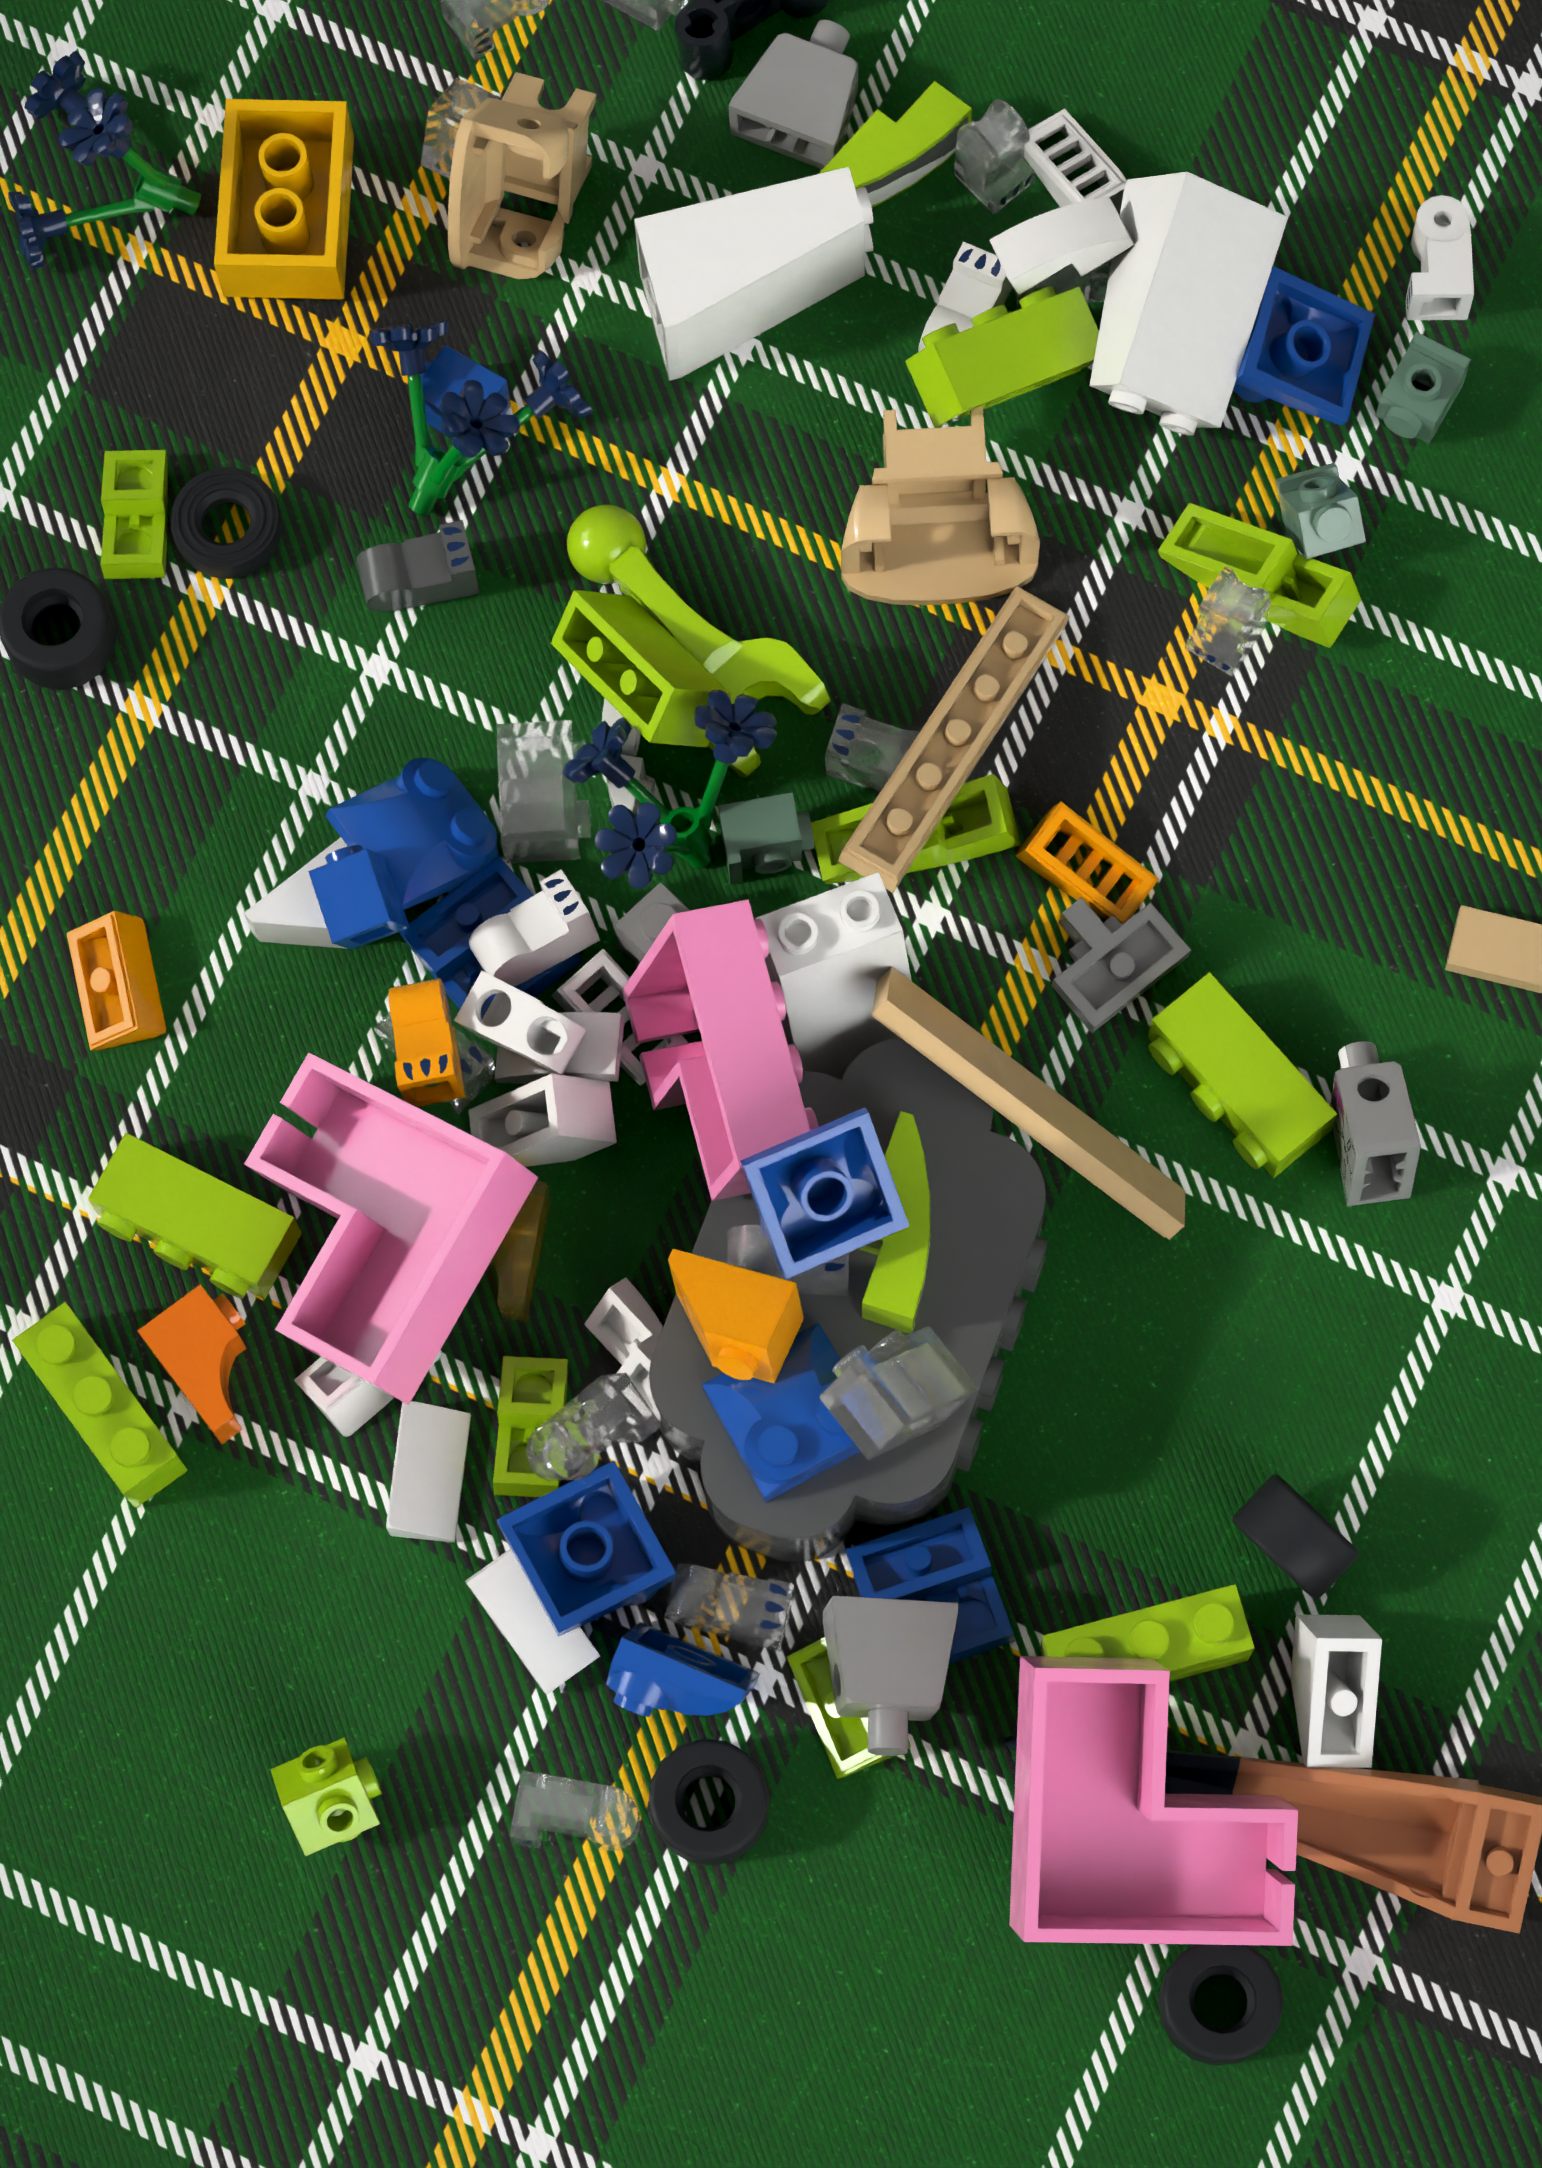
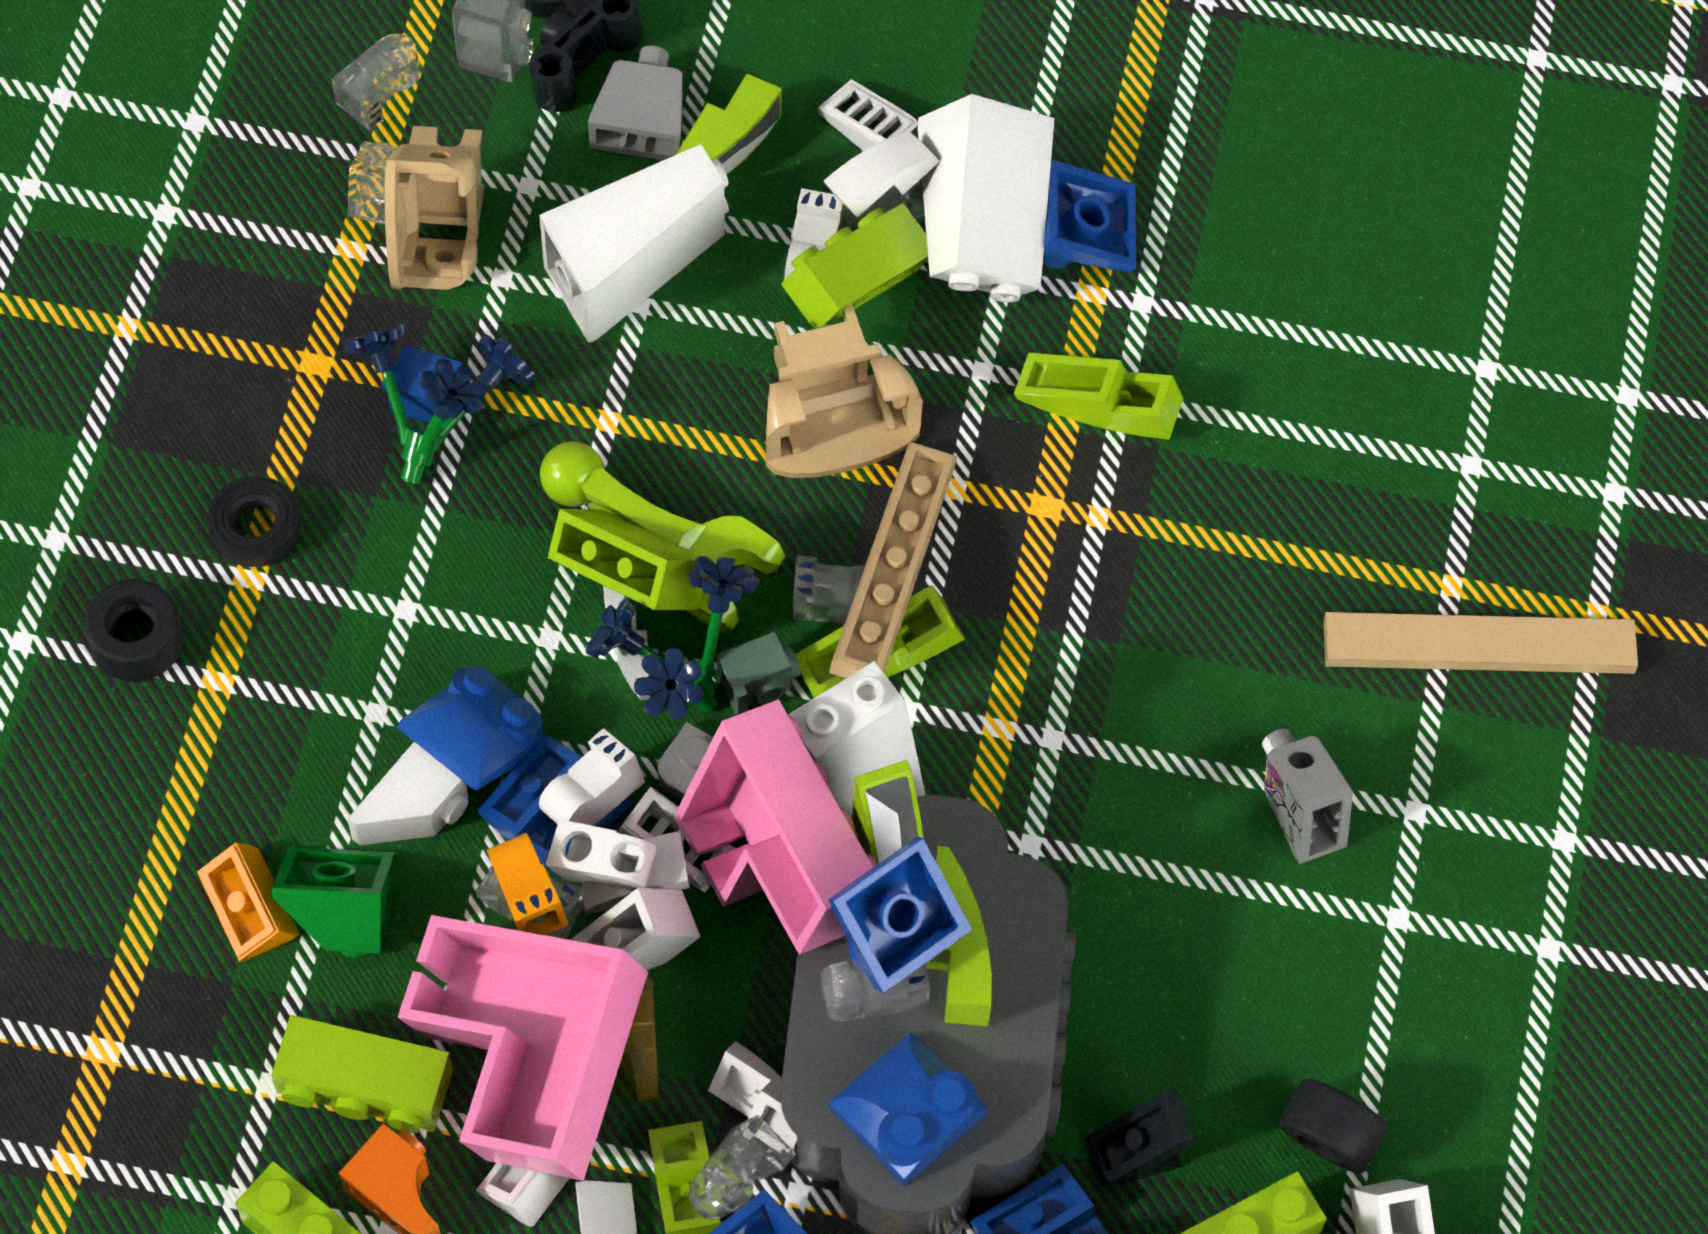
camera: 20 degrees left, 10 degrees down
(98, 130) = (79, 234): dark blue plant -> none
(134, 514) = (176, 529): lime slope -> none
(214, 999) = (338, 896): none -> green slope
(284, 199) = (244, 261): yellow brick -> none
(358, 897) = (443, 782): blue brick -> none
(418, 570) = (424, 525): dark grey leg -> none
(537, 803) = (566, 678): clear brick -> none
(738, 1314) = (844, 1035): light orange slope -> none
(844, 1068) = (886, 810): none -> slope
(896, 1390) = (993, 1065): clear brick -> none
(992, 156) = (805, 122): clear leg -> none
(1029, 1103) = (1036, 828): tan tile -> none
(1066, 1502) = (1142, 1141): none -> black slope
(1100, 848) = (1029, 628): light orange slope -> none
(1114, 960) = (1064, 711): light grey hinge -> none
(1229, 622) = (1086, 433): clear leg -> none
(1239, 1076) = (1189, 778): lime brick -> none
(1319, 511) = (1135, 336): sand green brick -> none
(1435, 371) = (1188, 231): sand green brick -> none
(1445, 250) = (1182, 144): white leg -> none

